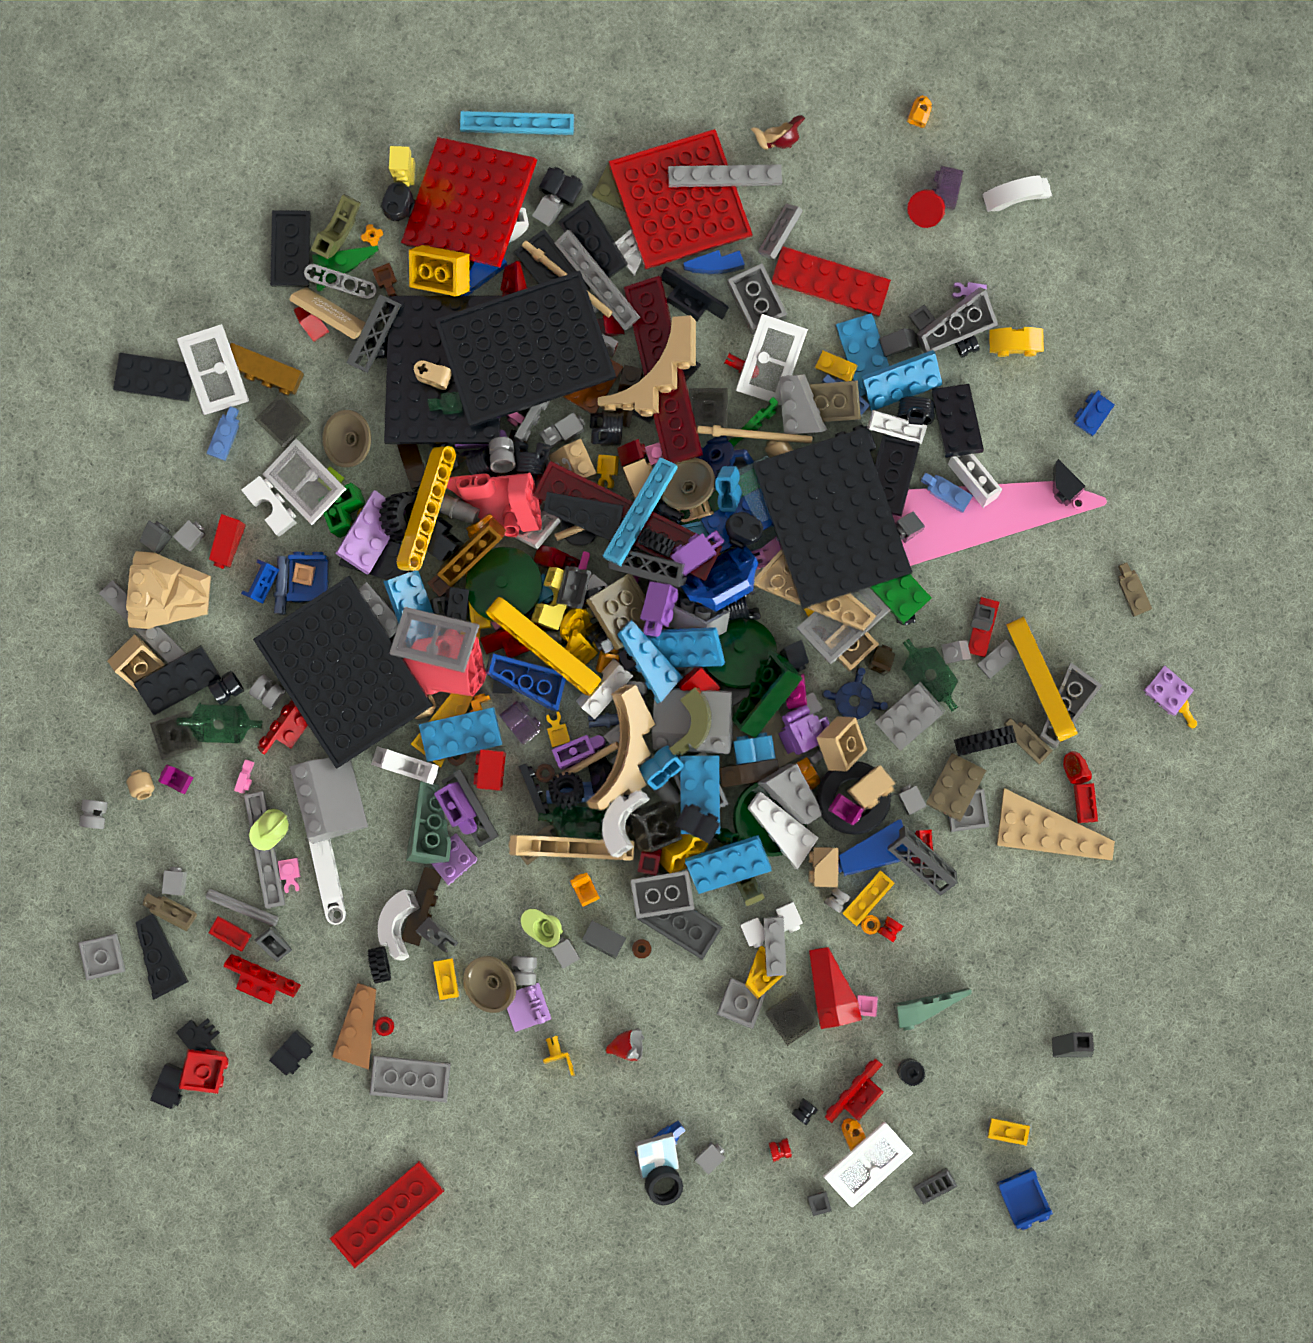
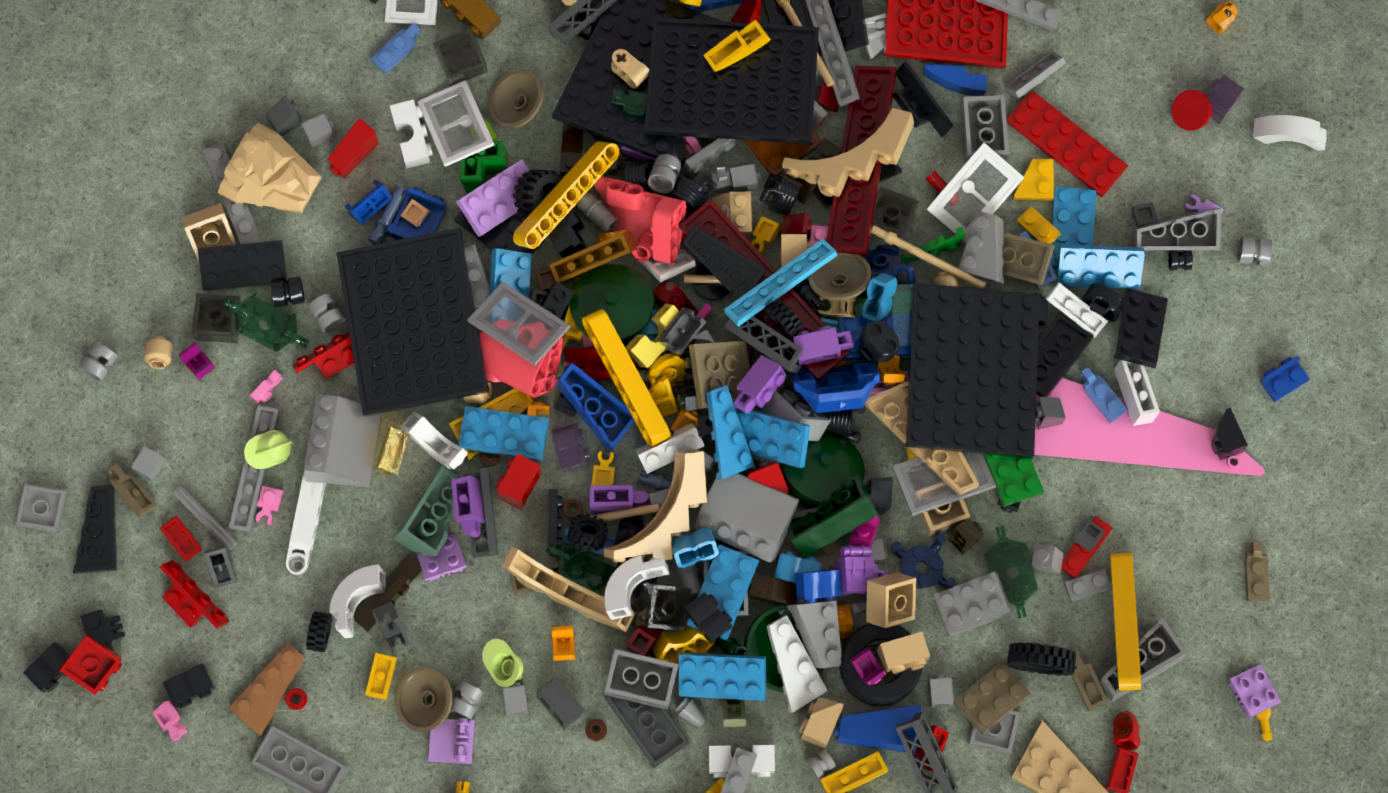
camera: 15 degrees right, 10 degrees down
(286, 1087) = (168, 719): none -> bright pink plate
(374, 788) = (392, 451): none -> clear yellow panel
(517, 318) = (737, 46): none -> yellow slope
(700, 722) = (753, 517): olive arch -> none
(713, 902) = (690, 712): none -> light grey cone
(763, 548) = (890, 372): none -> light orange bracket
(777, 756) = (818, 584): none -> blue brick
(819, 325) = (1037, 181): none -> yellow wing
(899, 342) = (1112, 228): dark grey slope -> none
(1020, 341) = (1240, 278): yellow brick -> none
(1026, 312) = (1255, 251): none -> light grey wheel

